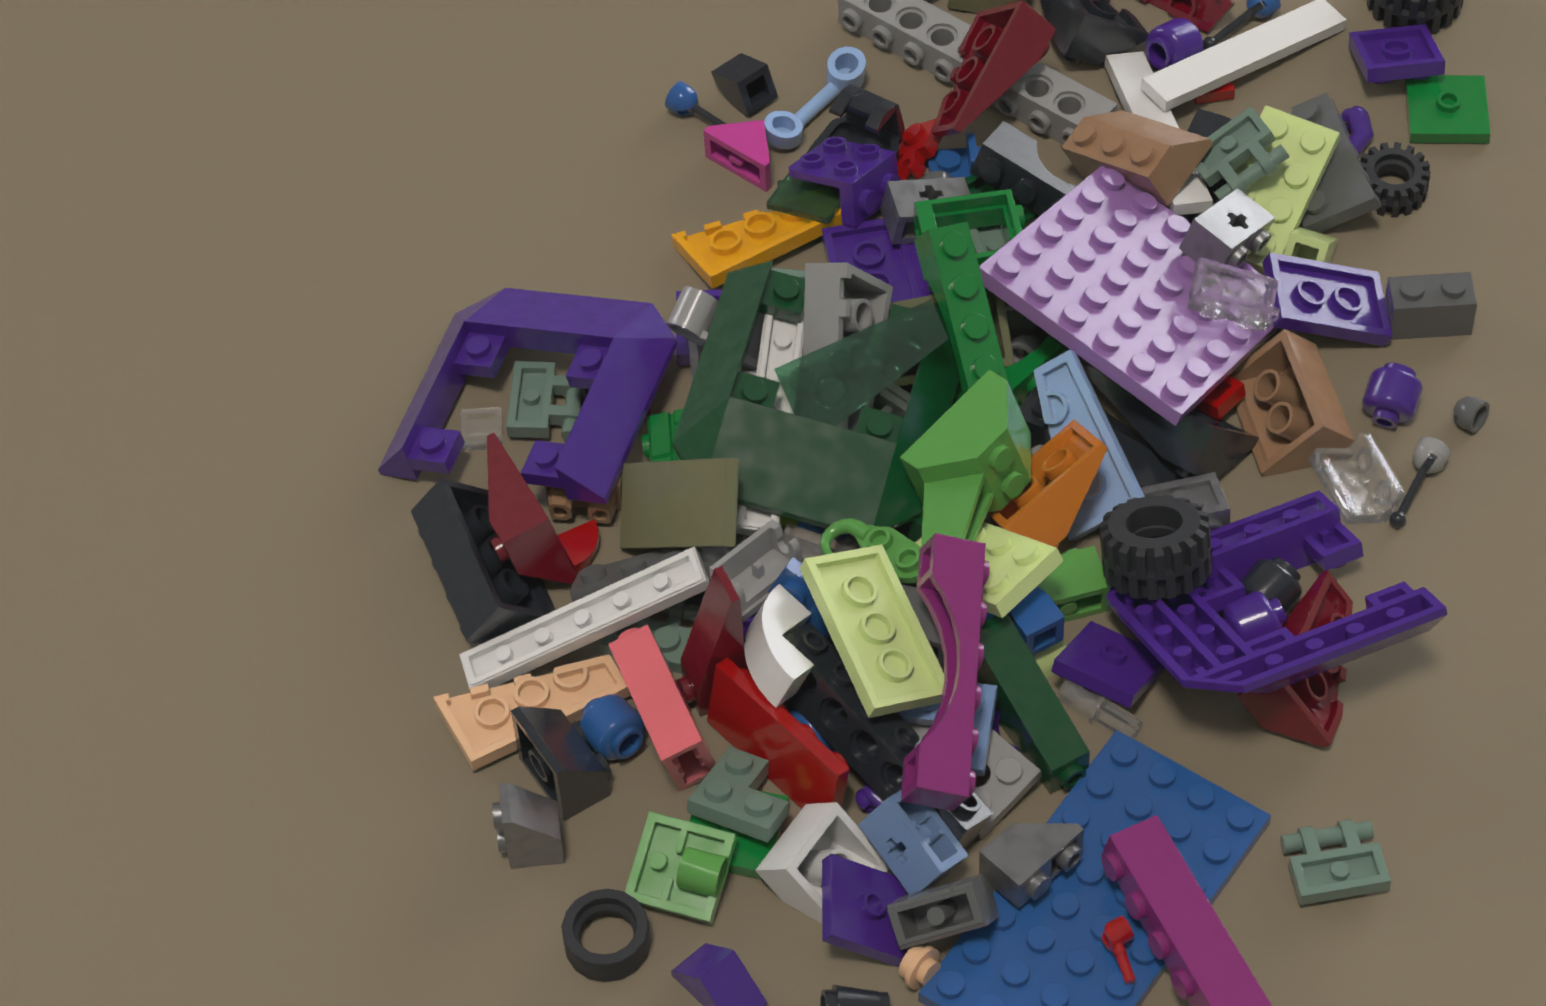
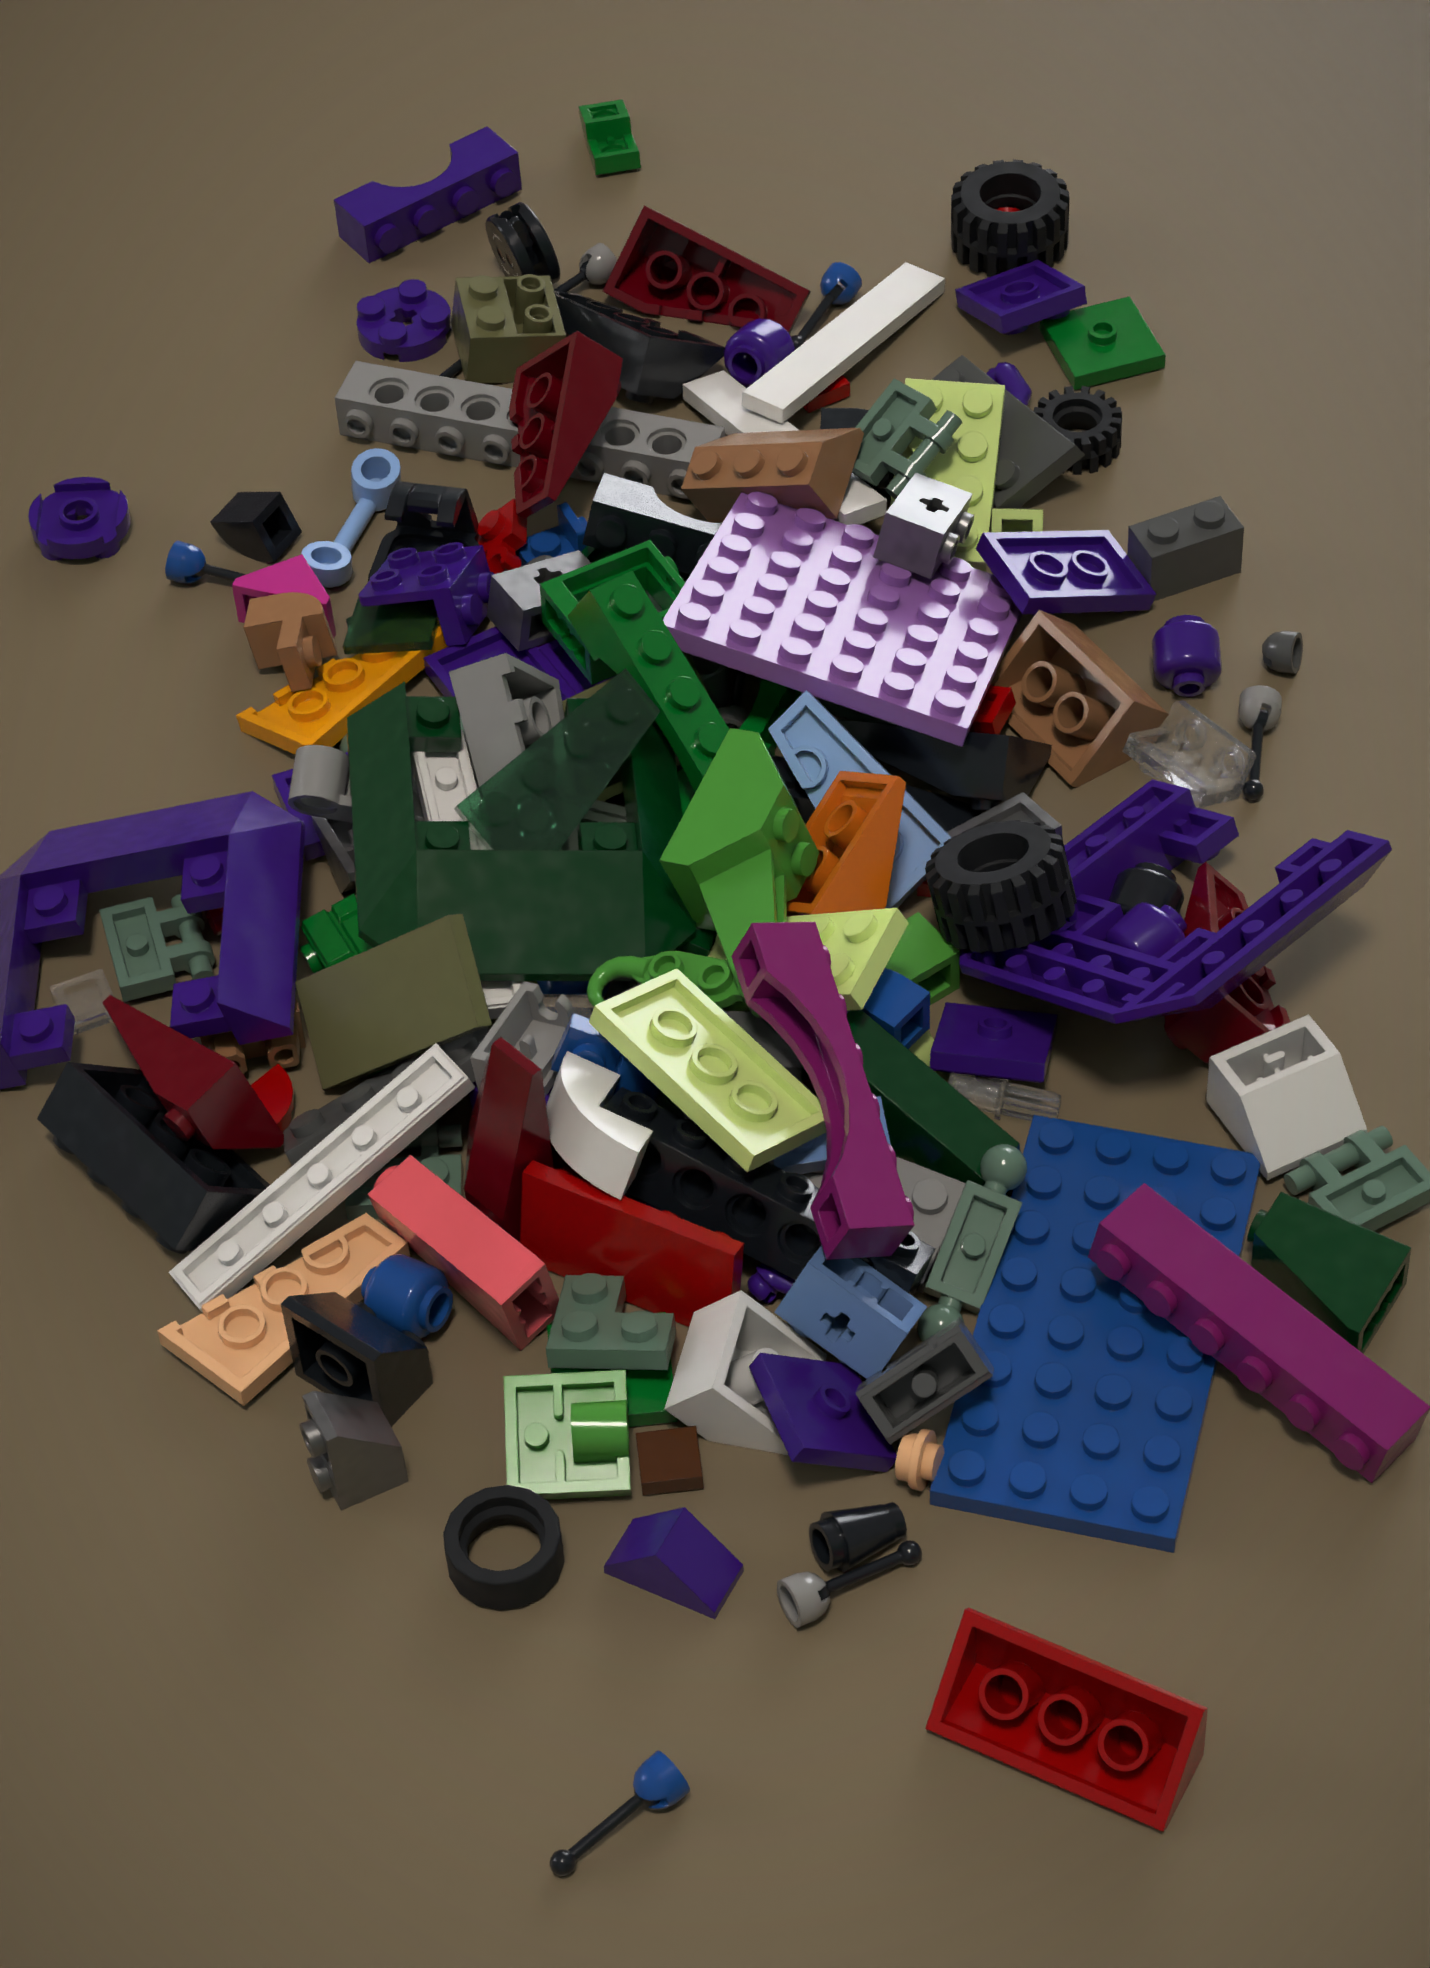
camera: 20 degrees left, 5 degrees down
(626, 57) = (98, 535): none -> dark purple plate
(731, 183) = (290, 633): none -> medium nougat brick
(747, 908) = (669, 1460): none -> reddish brown tile
(1029, 856) = (1003, 1284): flat silver slope -> none
(1036, 801) = (974, 1240): none -> sand green plate
(1114, 936) = (1146, 1348): red hand -> none
(1233, 295) = (965, 587): clear bracket -> none
(1279, 923) = (1330, 1266): none -> dark green slope
(1304, 776) = (1284, 1095): none -> white slope

